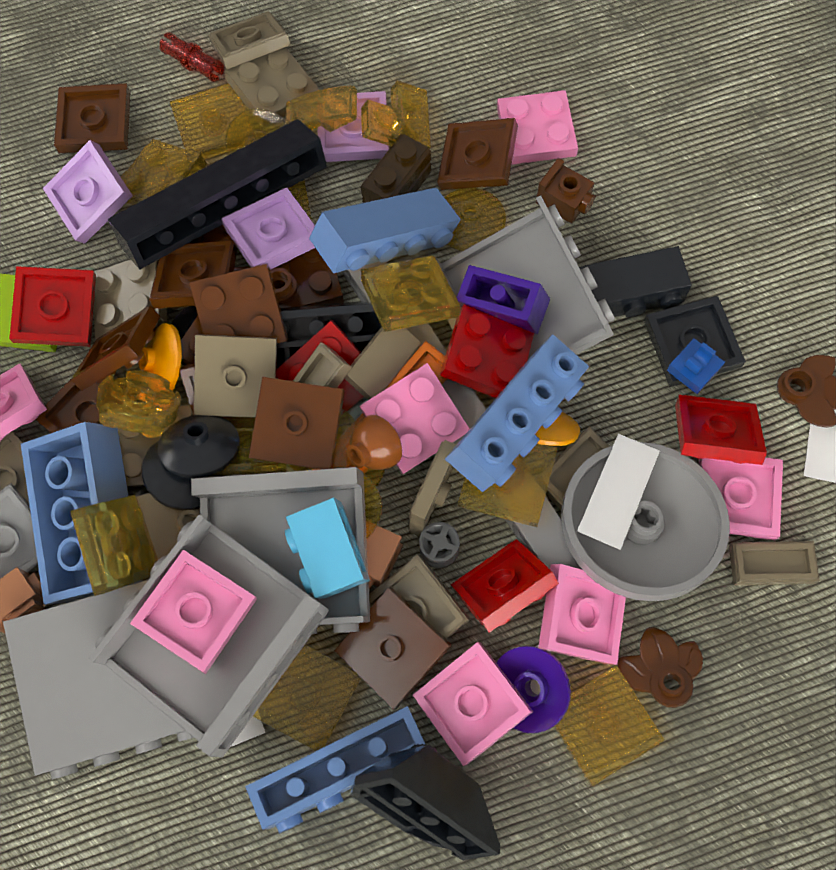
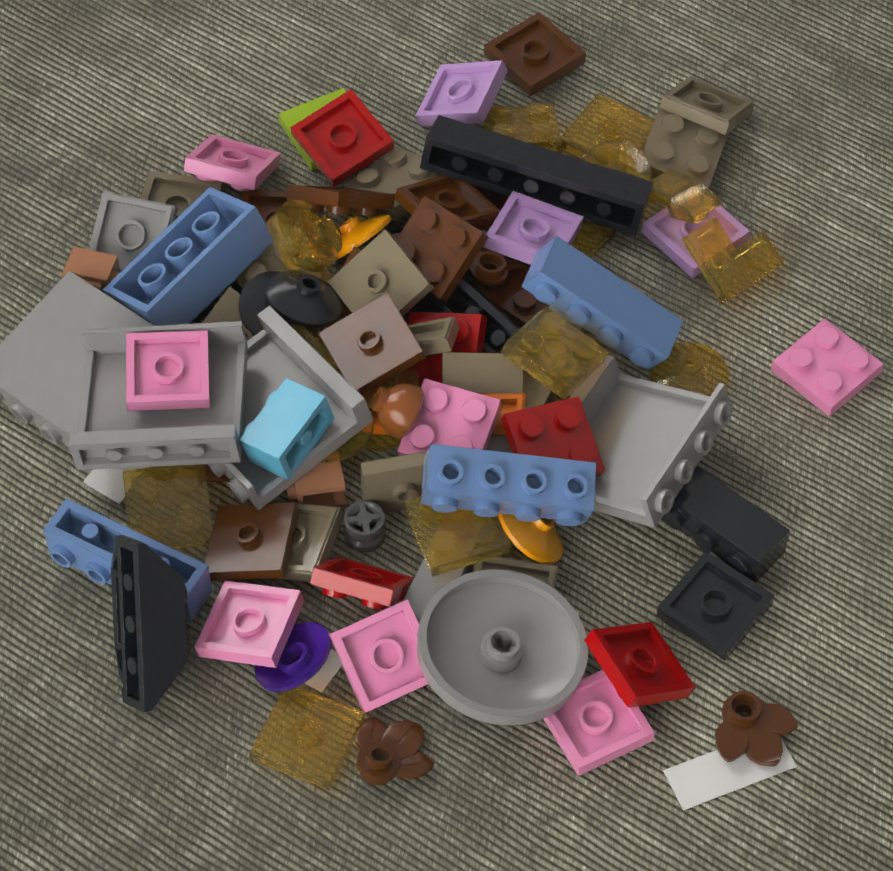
camera: 50 degrees right, 15 degrees down
(113, 543) = (179, 287): clear yellow plate -> none
(191, 56) = (655, 77): clear red pin -> none
(399, 171) = (678, 288): dark brown brick -> none
(478, 154) = (752, 336): reddish brown plate -> none
(505, 297) = (611, 425): dark purple brick -> none
(567, 191) = (775, 422): reddish brown brick -> none
(618, 491) = (510, 609): white sticker -> none
(696, 365) = (684, 612): blue tile -> none
(774, 563) = (556, 787): dark tan tile -> none

